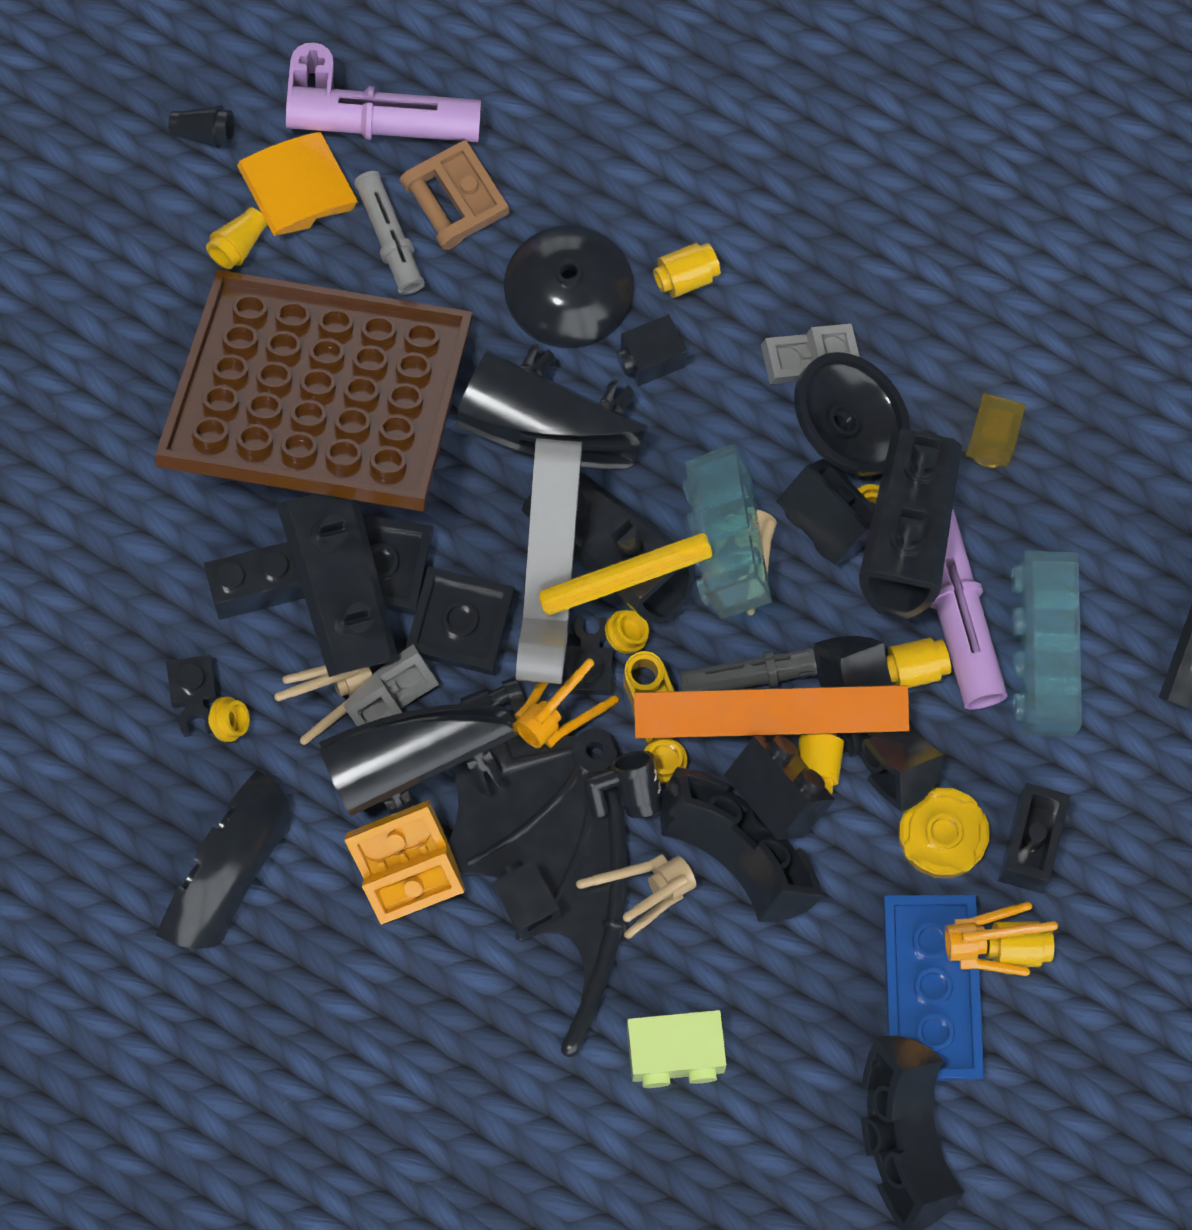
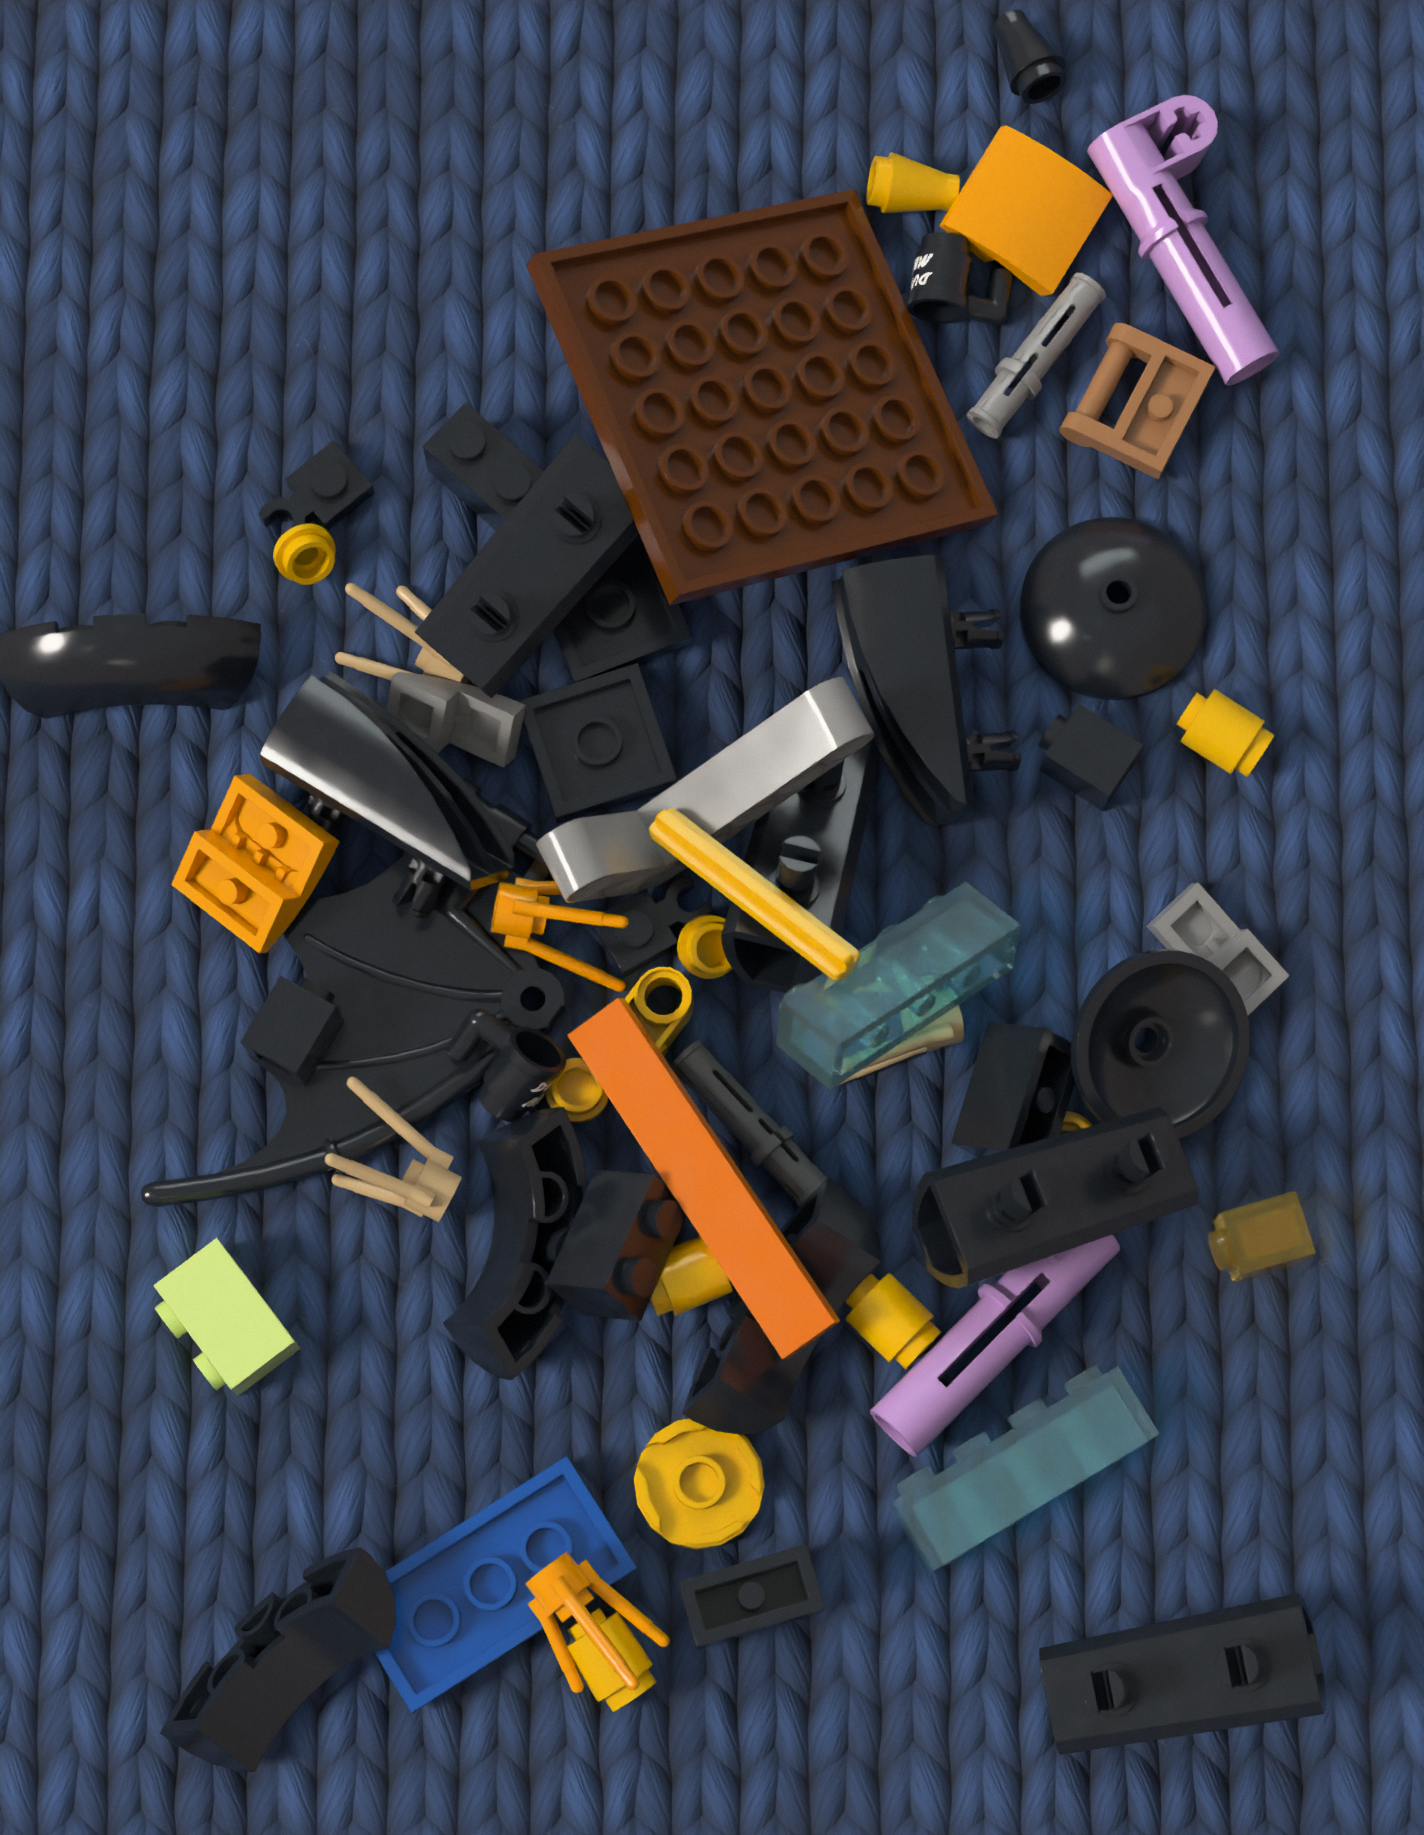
camera: 60 degrees right, 5 degrees up
(310, 255) = (943, 284): none -> black piece

